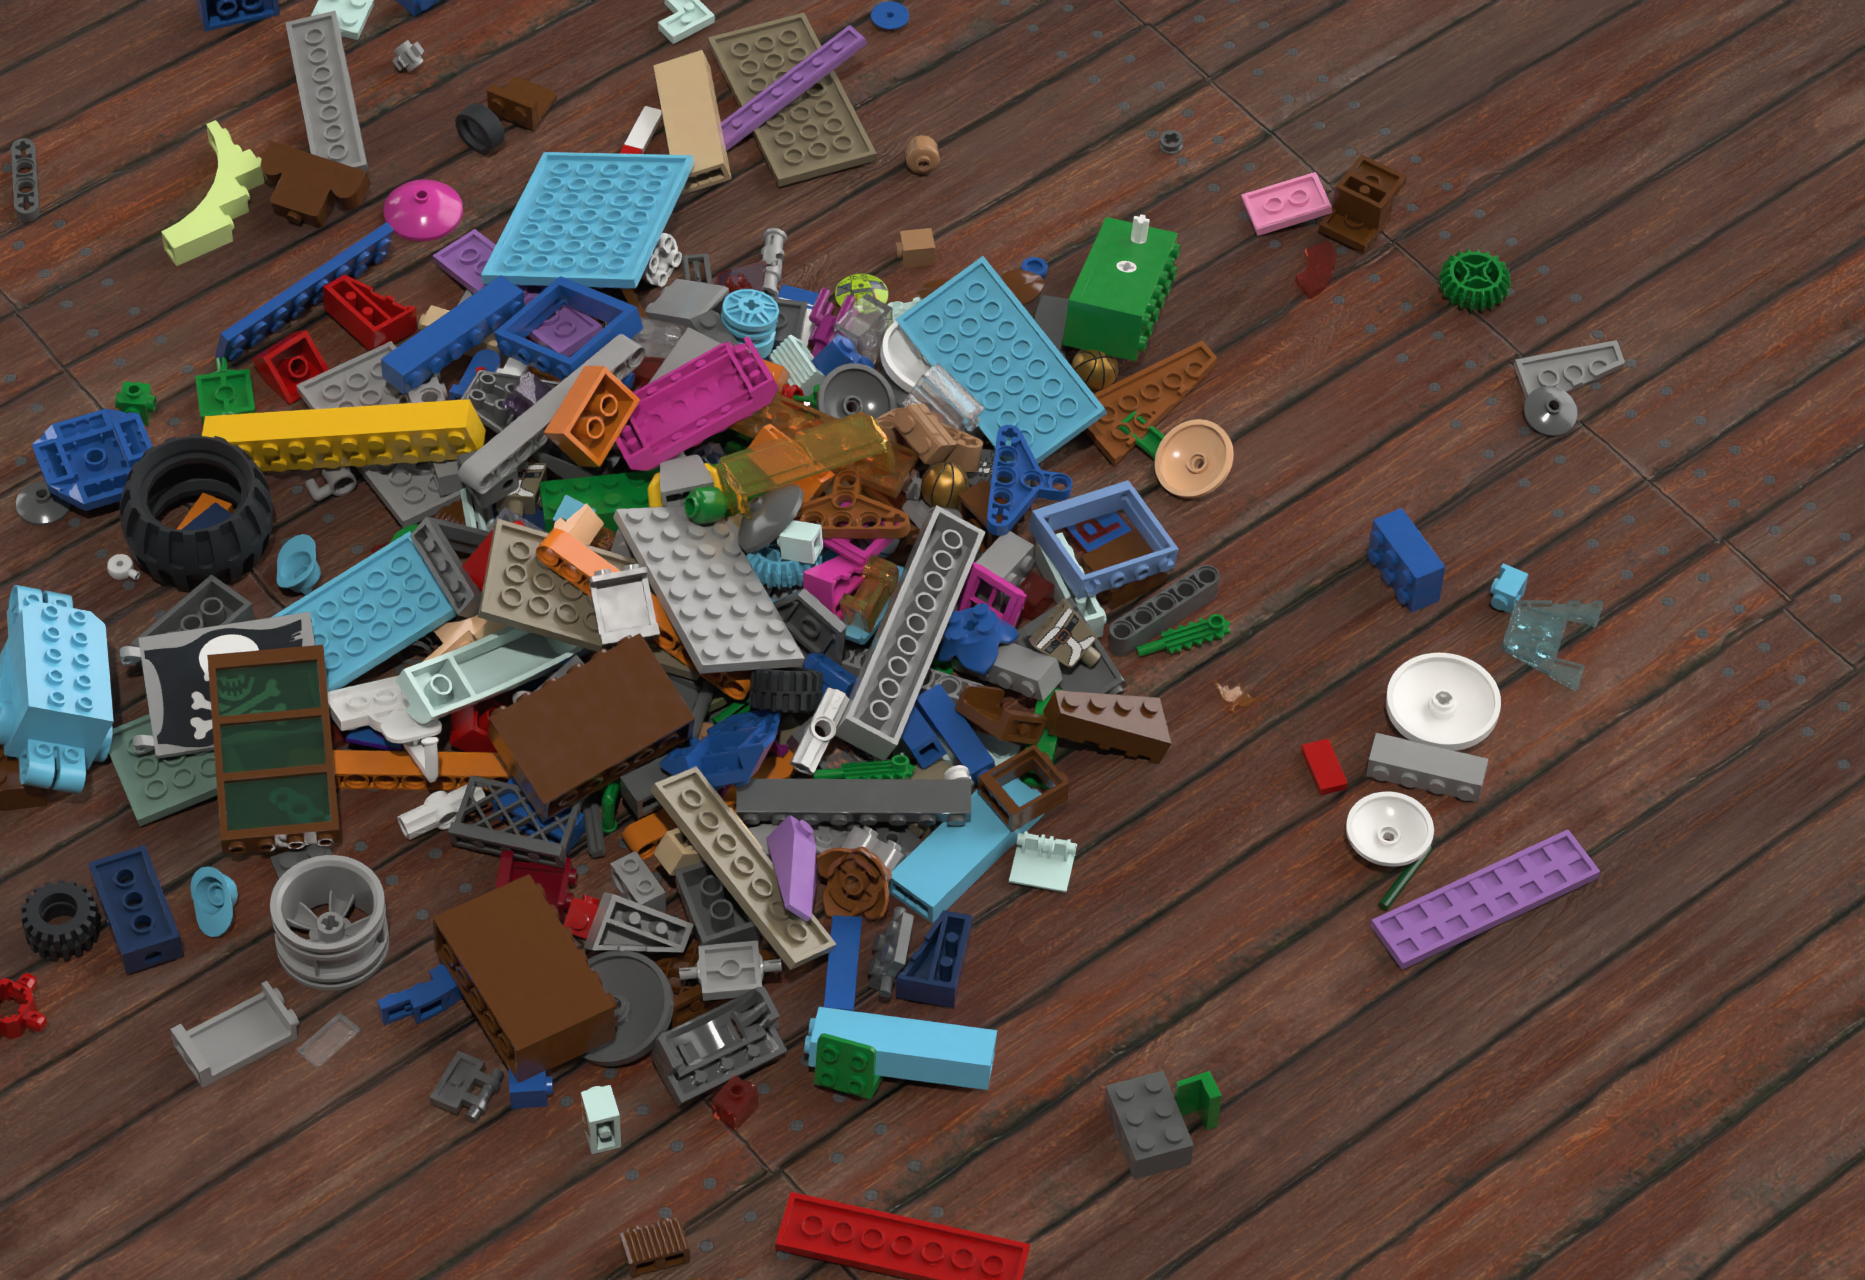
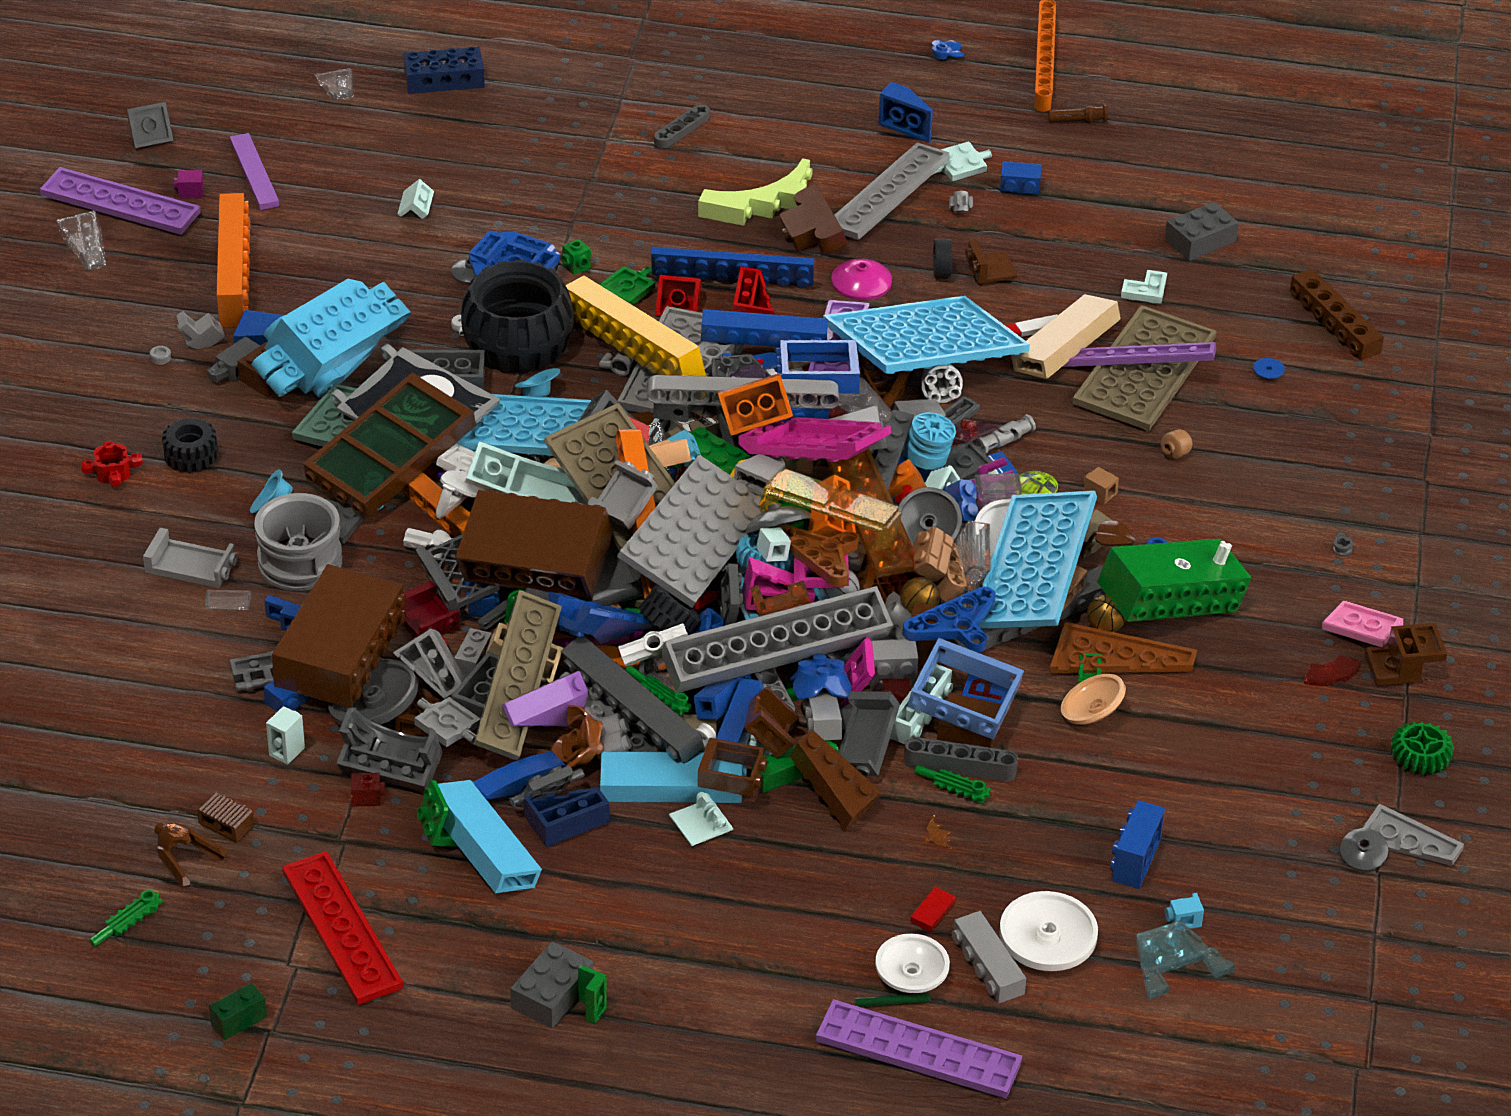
camera: 50 degrees right, 10 degrees down
(140, 926) = (227, 467): dark blue brick -> none
(706, 505) = (751, 490): green head -> none
(1066, 637) = (864, 713): torso -> none

